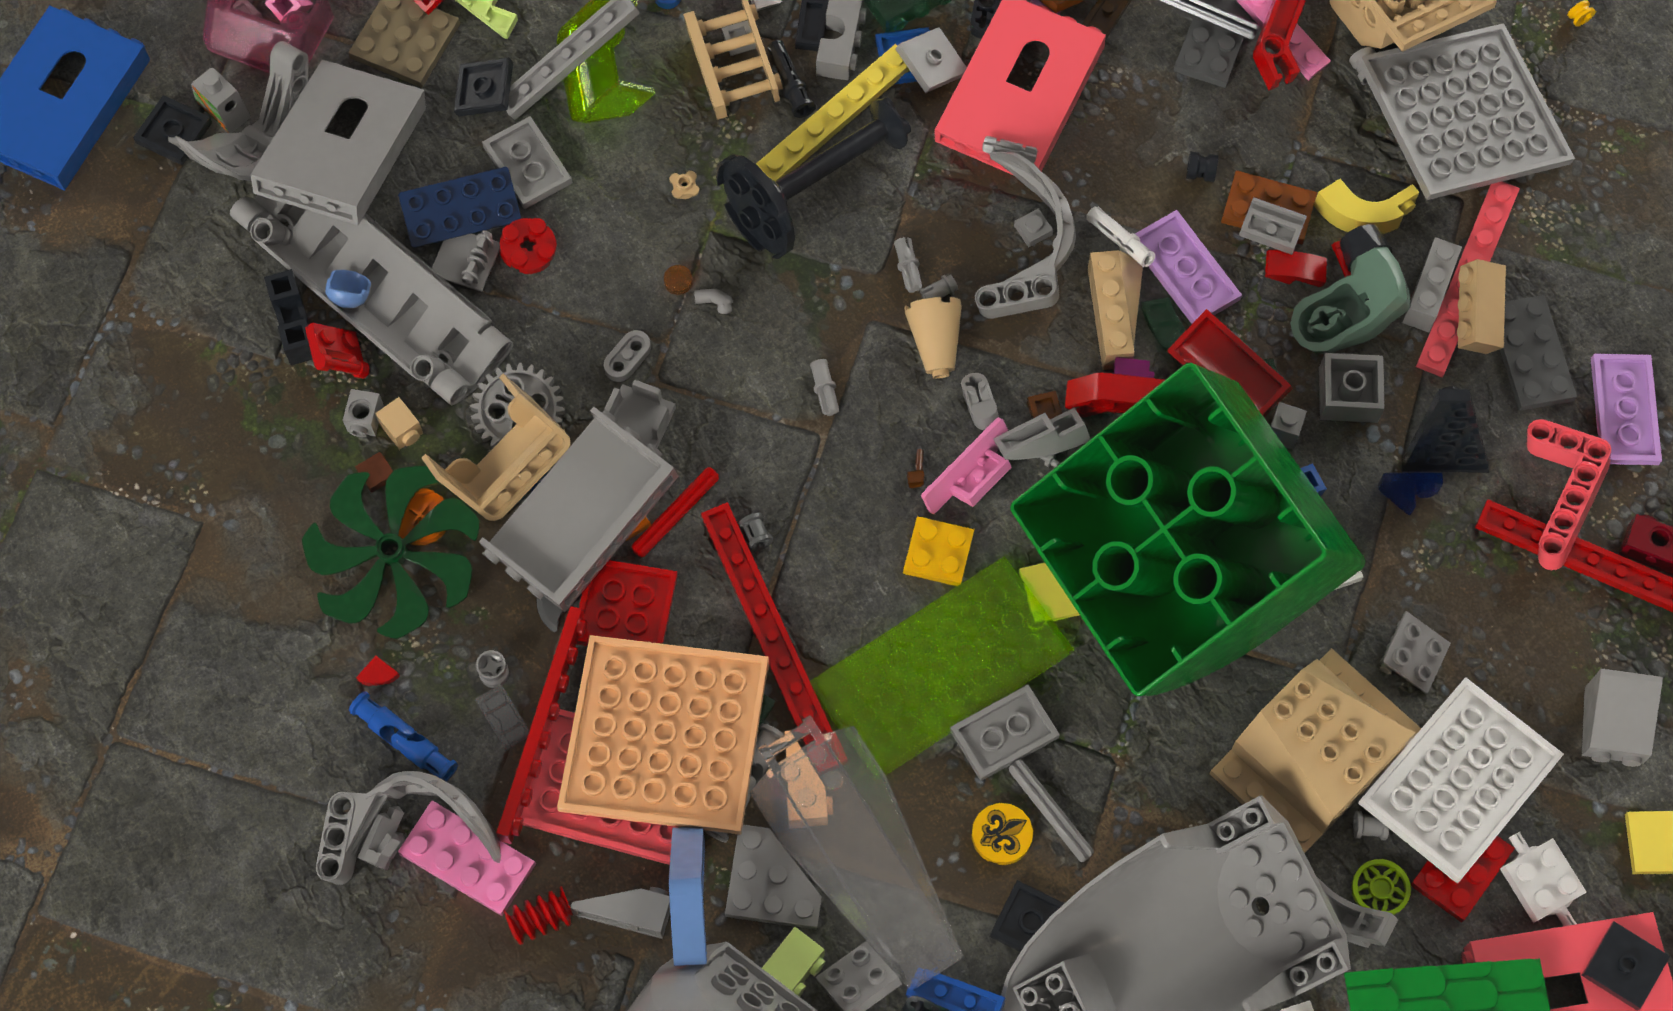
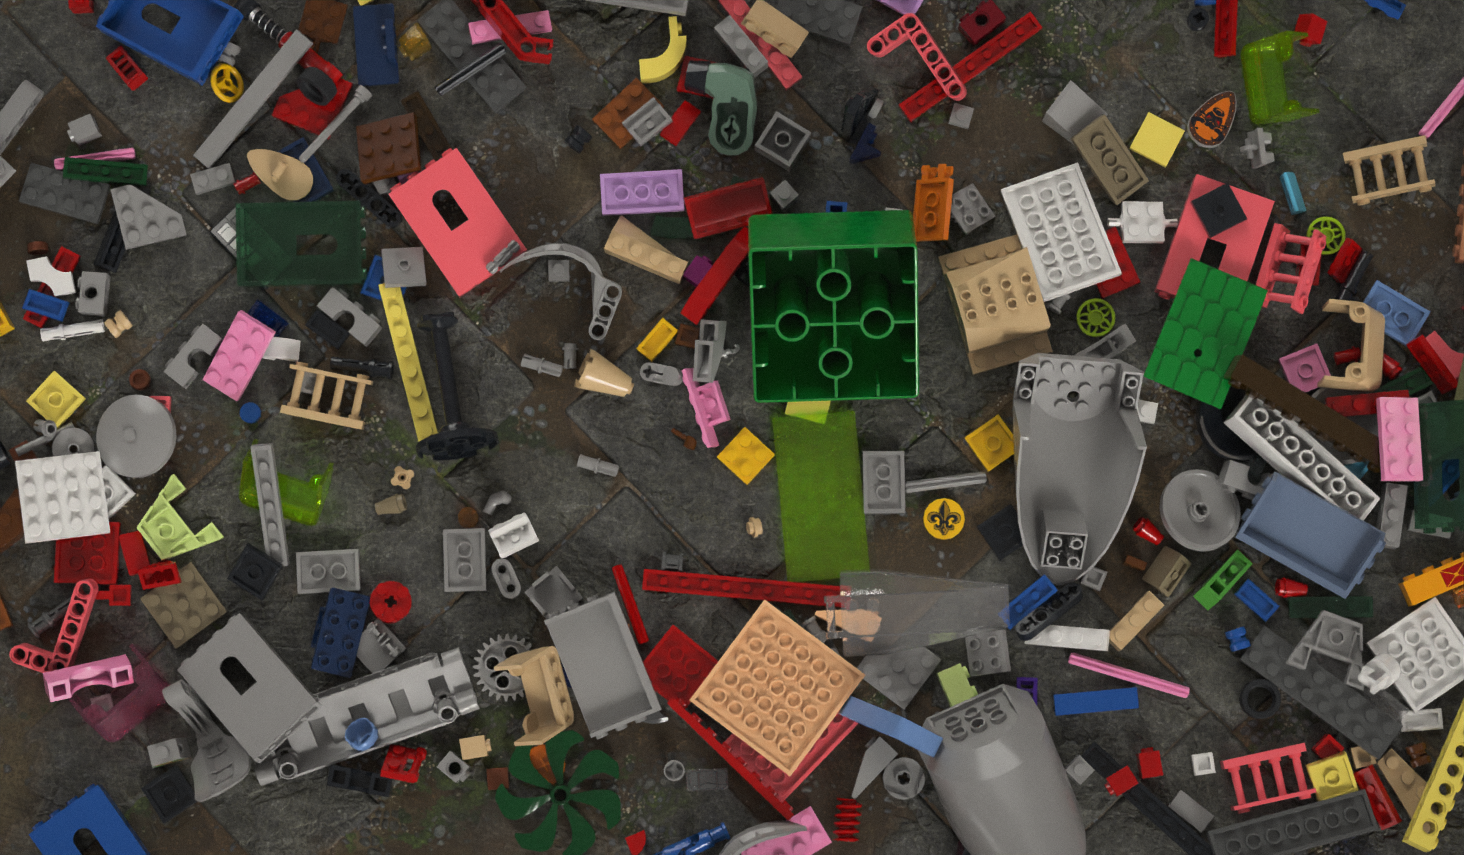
camera: 60 degrees left, 15 degrees up
(619, 951) = (913, 771): none -> light grey plate
(623, 299) = (464, 560): none -> light grey plate
(646, 190) = (391, 505): none -> dark tan cone
(685, 335) = (513, 535): none -> white bracket
(855, 605) = (754, 527): none -> tan plate
(1018, 377) = (657, 340): none -> yellow tile
(1127, 242) = (608, 219): white pin -> none
(1129, 832) = (991, 443): none -> yellow plate
(1392, 602) = (933, 203): none -> orange tile
(1464, 475) = (875, 108): none -> light grey tile
(1524, 583) = (961, 116): none -> light grey plate
(1595, 789) = (1109, 159): none -> dark tan plate

